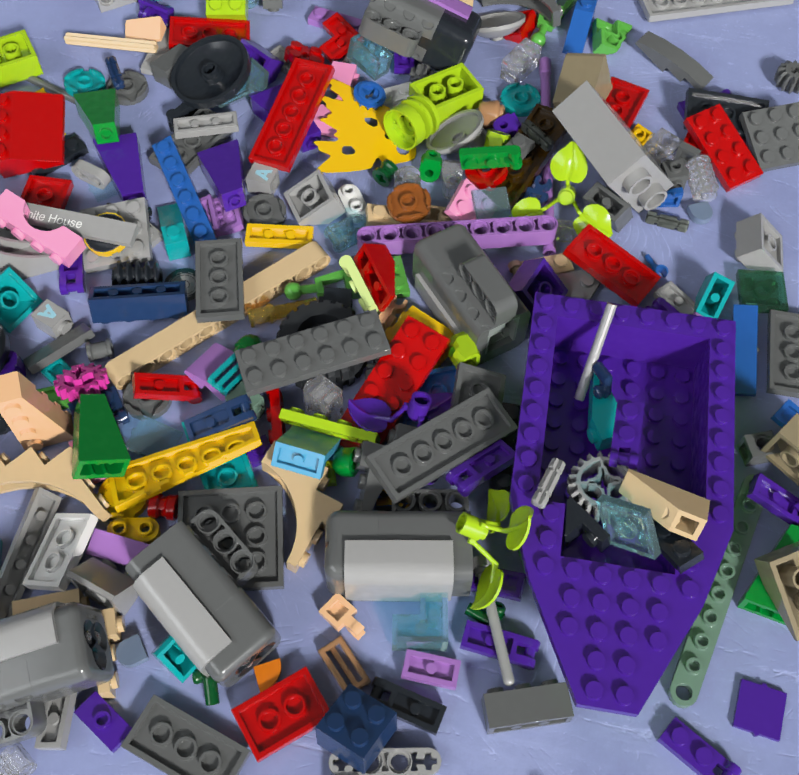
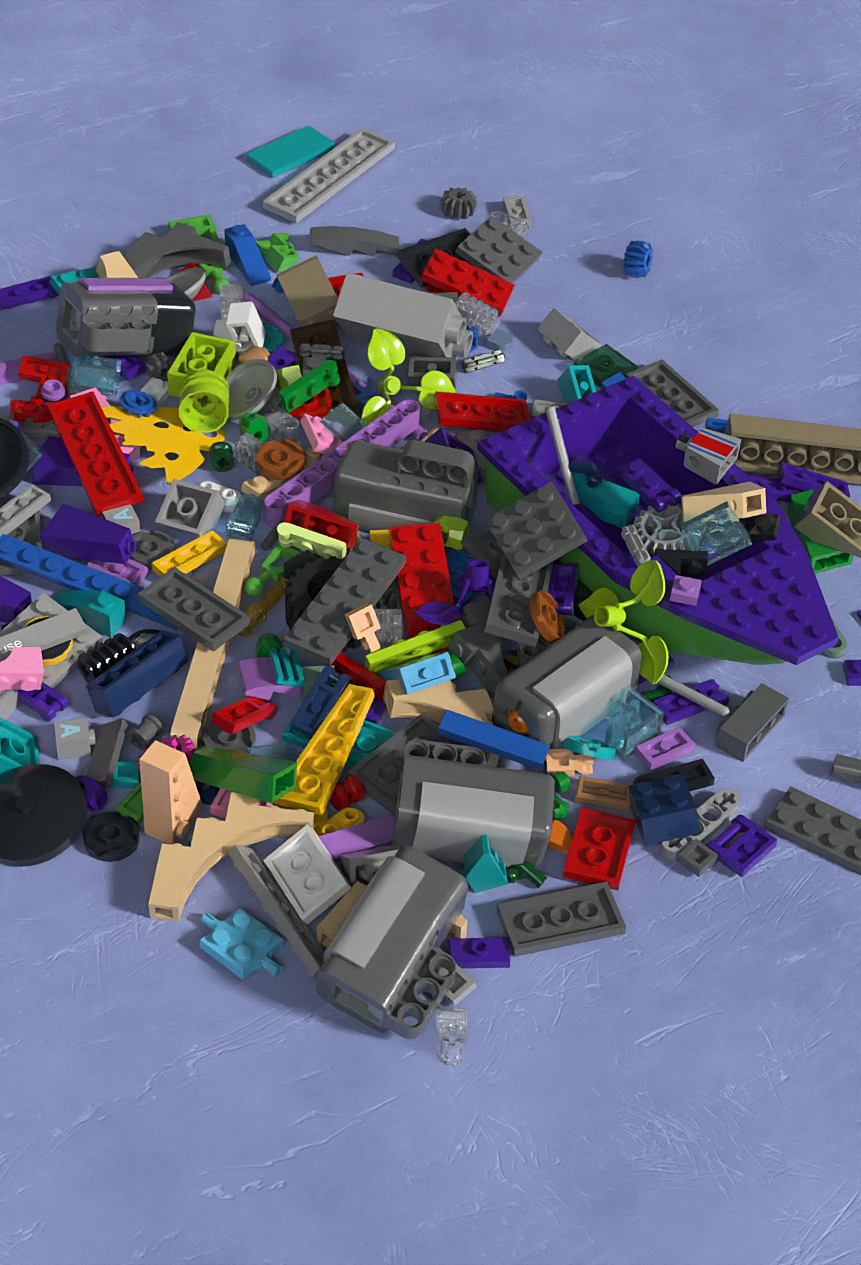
camera: 45 degrees left, 15 degrees down
(294, 645) = (562, 783): none -> green piece
(295, 383) = (363, 624): none -> light nougat plate
(296, 554) = (493, 739): none -> blue tile
(328, 50) = (52, 390): none -> medium lavender plate
(366, 620) = (589, 747): none -> teal tile
(428, 484) = (545, 617): none -> dark orange tile
(494, 404) = (536, 530): none -> dark grey plate
(501, 81) = (241, 326): none -> white brick
(544, 558) = (685, 590): none -> medium lavender plate
(710, 444) = (709, 453): none -> light grey torso

